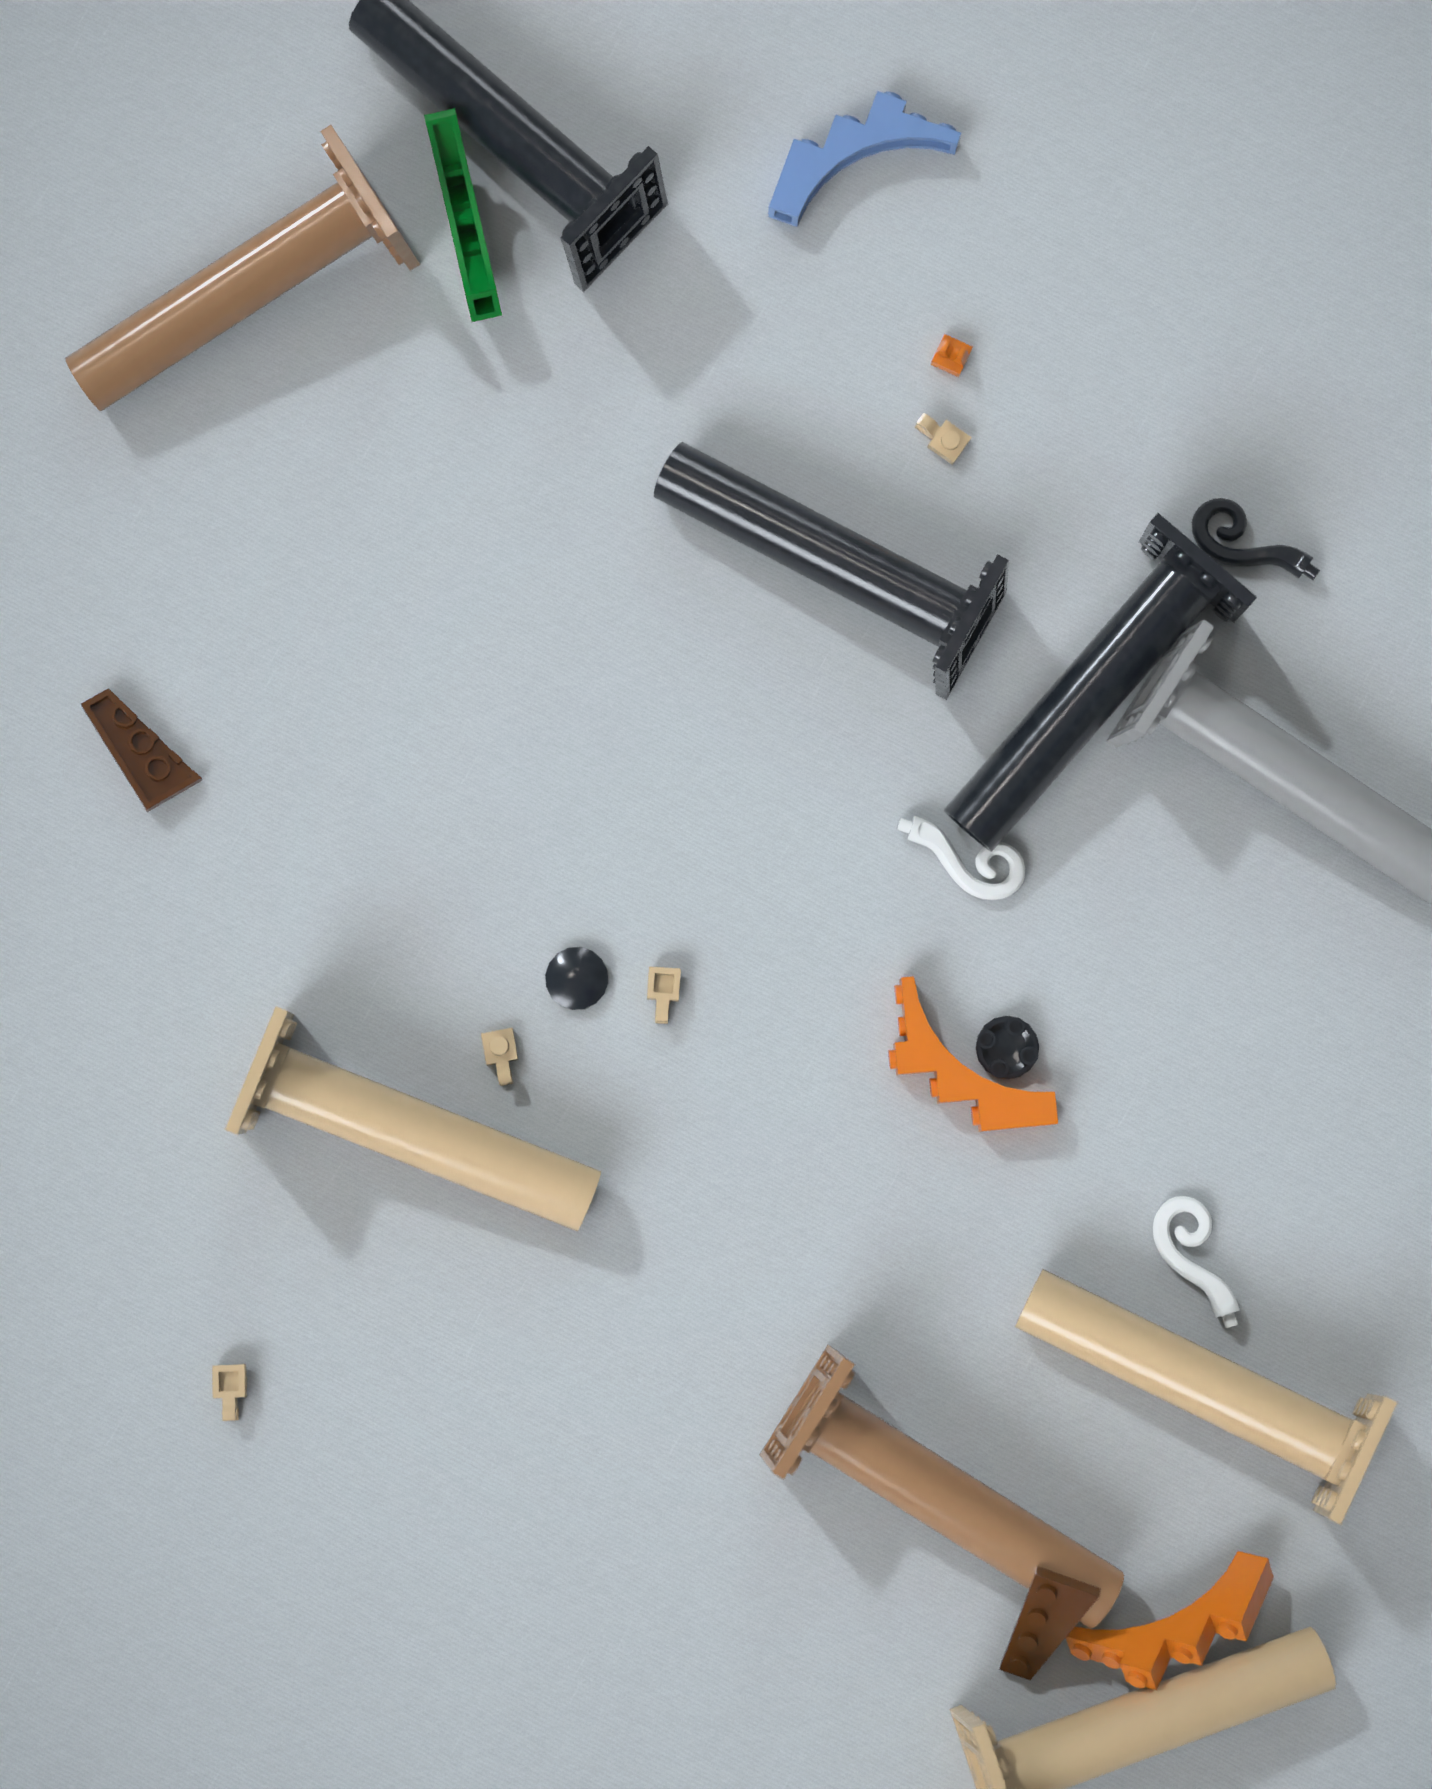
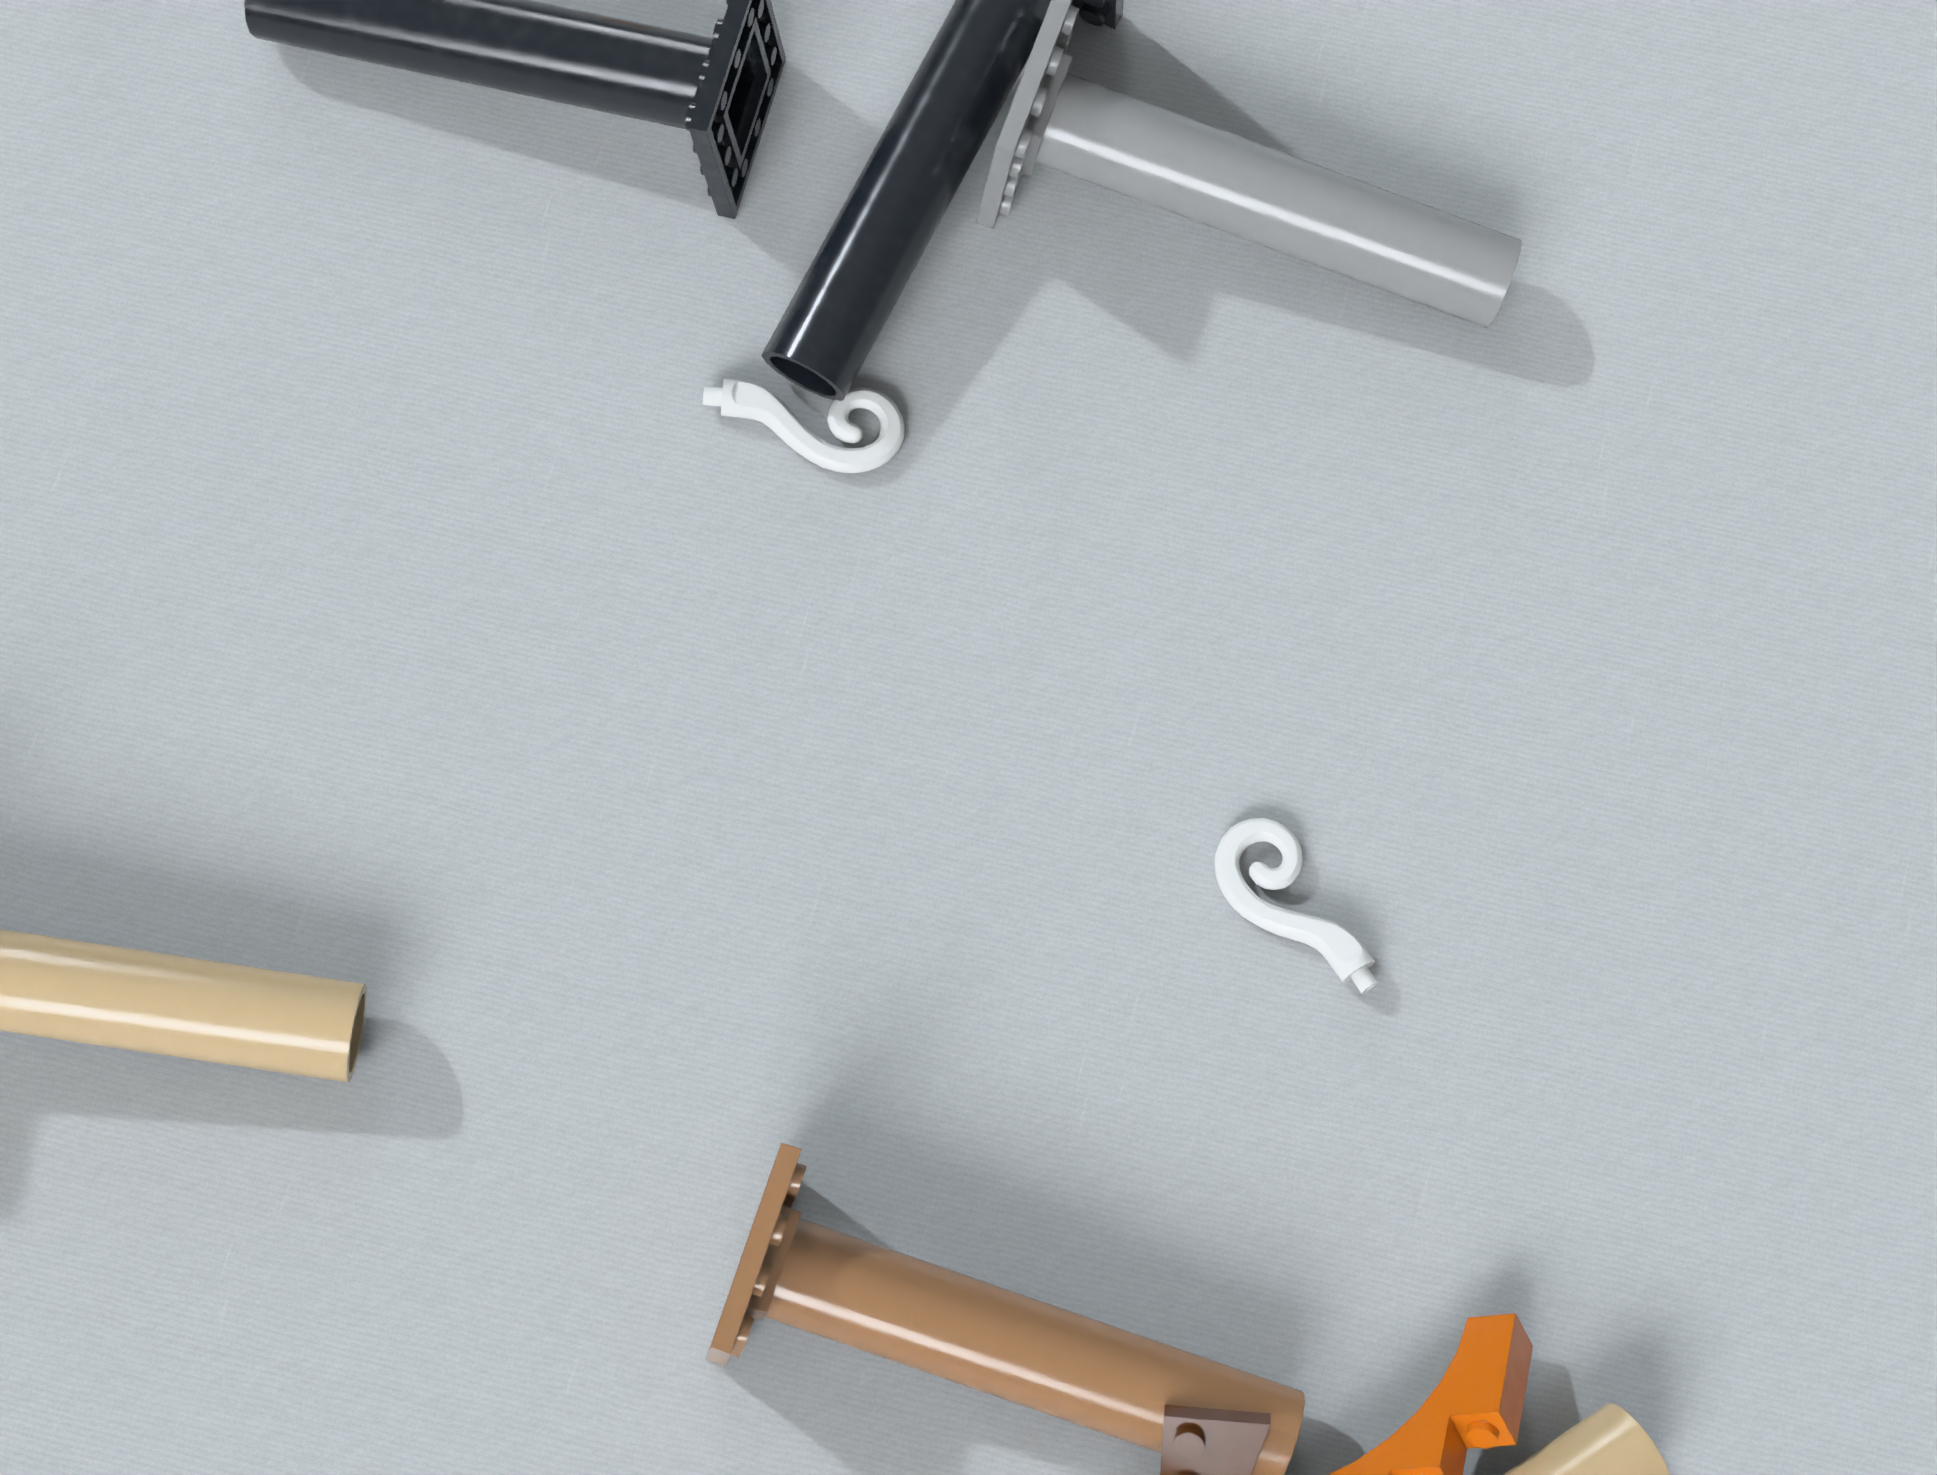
camera: 15 degrees left, 10 degrees down
(500, 1050) = (181, 853): tan plate -> none
(576, 978) = (276, 721): black dish -> none
(663, 987) = (407, 703): tan plate -> none
(923, 1052) = (942, 751): orange arch -> none
(1007, 1047) = (936, 669): black dish -> none
(1212, 1387) = (1359, 1074): tan piece -> none

